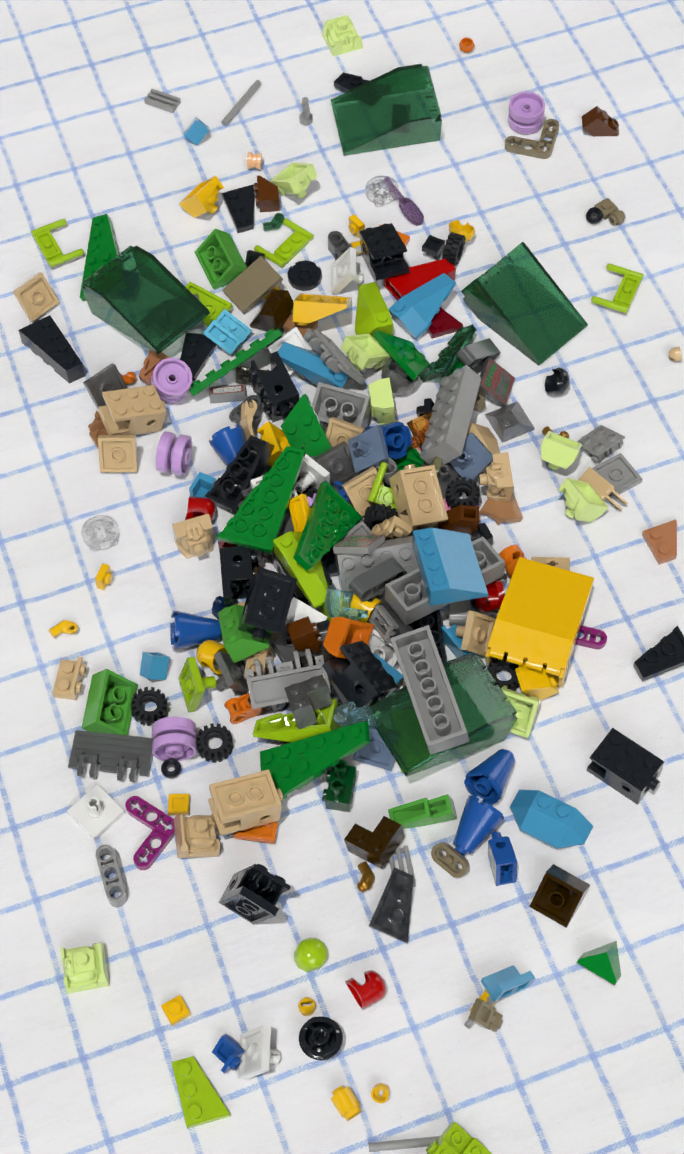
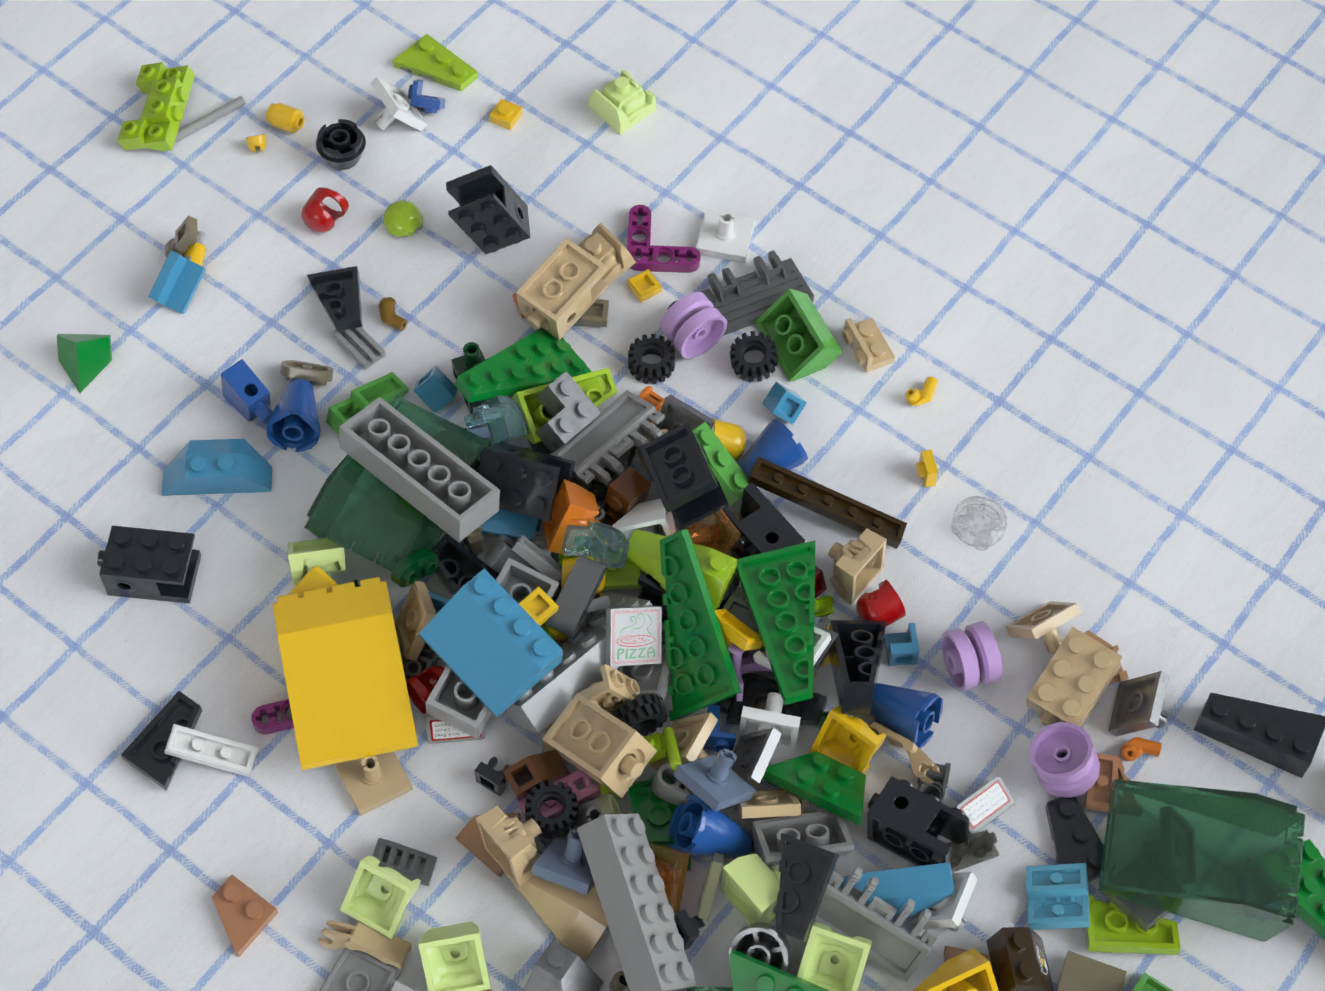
camera: 145 degrees right, 0 degrees up
(107, 867) = (659, 182): light grey beam -> none
(183, 581) = (825, 501): none -> dark brown plate
(193, 684) = (718, 394): lime tile -> none
(241, 357) = (993, 863): green wing -> none
(307, 1010) = (377, 177): yellow hinge -> none
(360, 373) = (803, 882): none -> black wing
(370, 798) = (435, 389): none -> dark azure panel
(377, 845) = (398, 336): dark brown brick -> none
(403, 414) = (710, 885): none -> olive tile
(408, 571) = (539, 606): none -> yellow plate
(468, 648) = (414, 567): none -> dark green plate
(490, 776) = (306, 472): blue cone -> none
(510, 556) = (429, 759): orange wheel -> none
(559, 895) = (162, 398): dark brown slope -> none
(565, 532) = (395, 849): none -> dark grey slope
(639, 632) = (211, 750): none -> white tile

